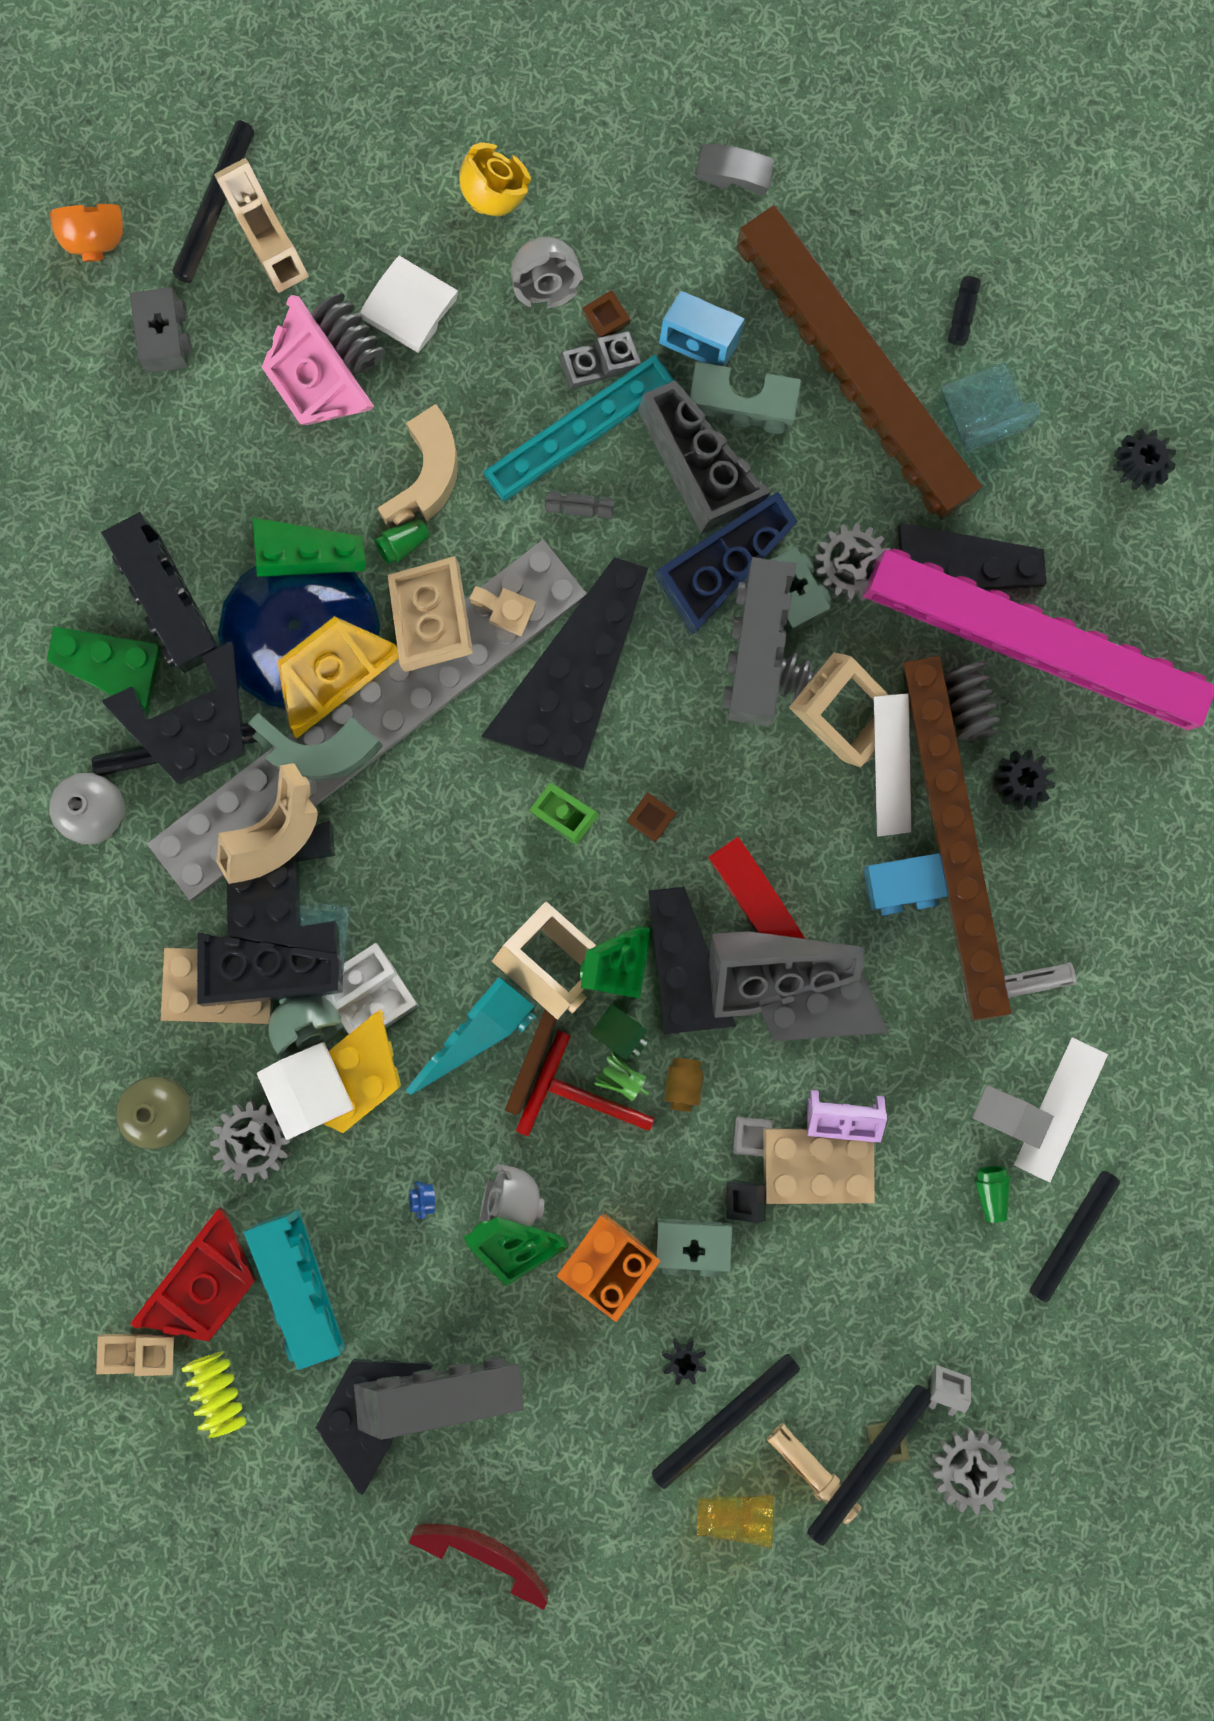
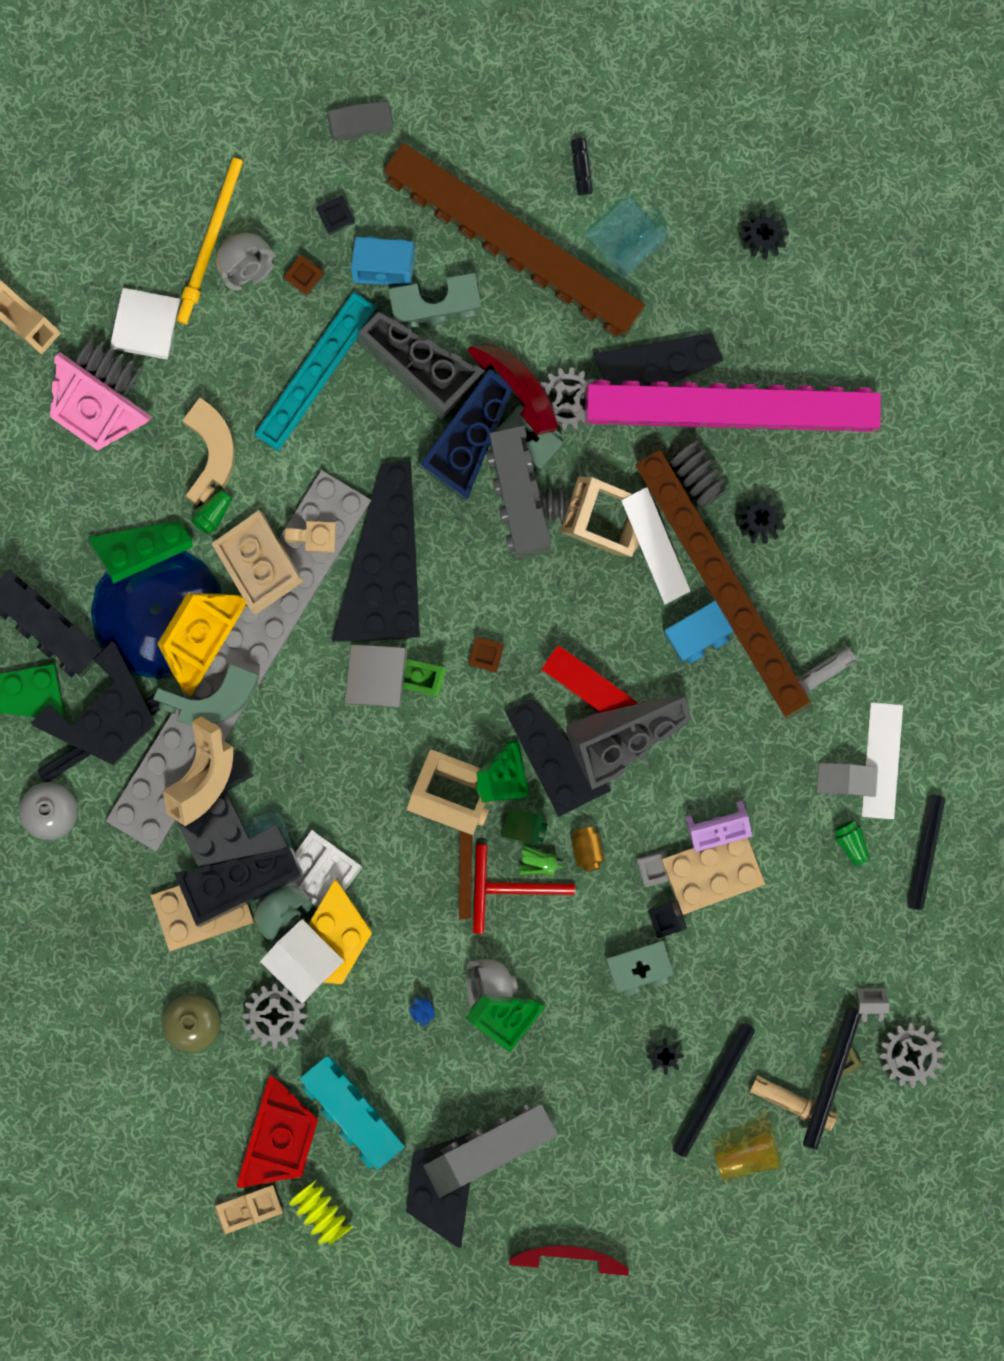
camera: 20 degrees left, 0 degrees up
(473, 289) = (191, 293): none -> yellow bar
(488, 1022) = (422, 857): teal wedge -> none
(492, 181) = (176, 203): yellow cylinder -> none
(516, 794) = (376, 676): none -> light grey slope
(579, 504) = (339, 432): dark grey axle -> none
(600, 361) = (311, 312): dark grey slope -> none
(609, 1267) = (581, 1006): orange slope -> none
(667, 262) = (335, 215): none -> black plate
(815, 558) = (538, 410): none -> dark red slope
(831, 1013) = (680, 752): dark grey wing -> none

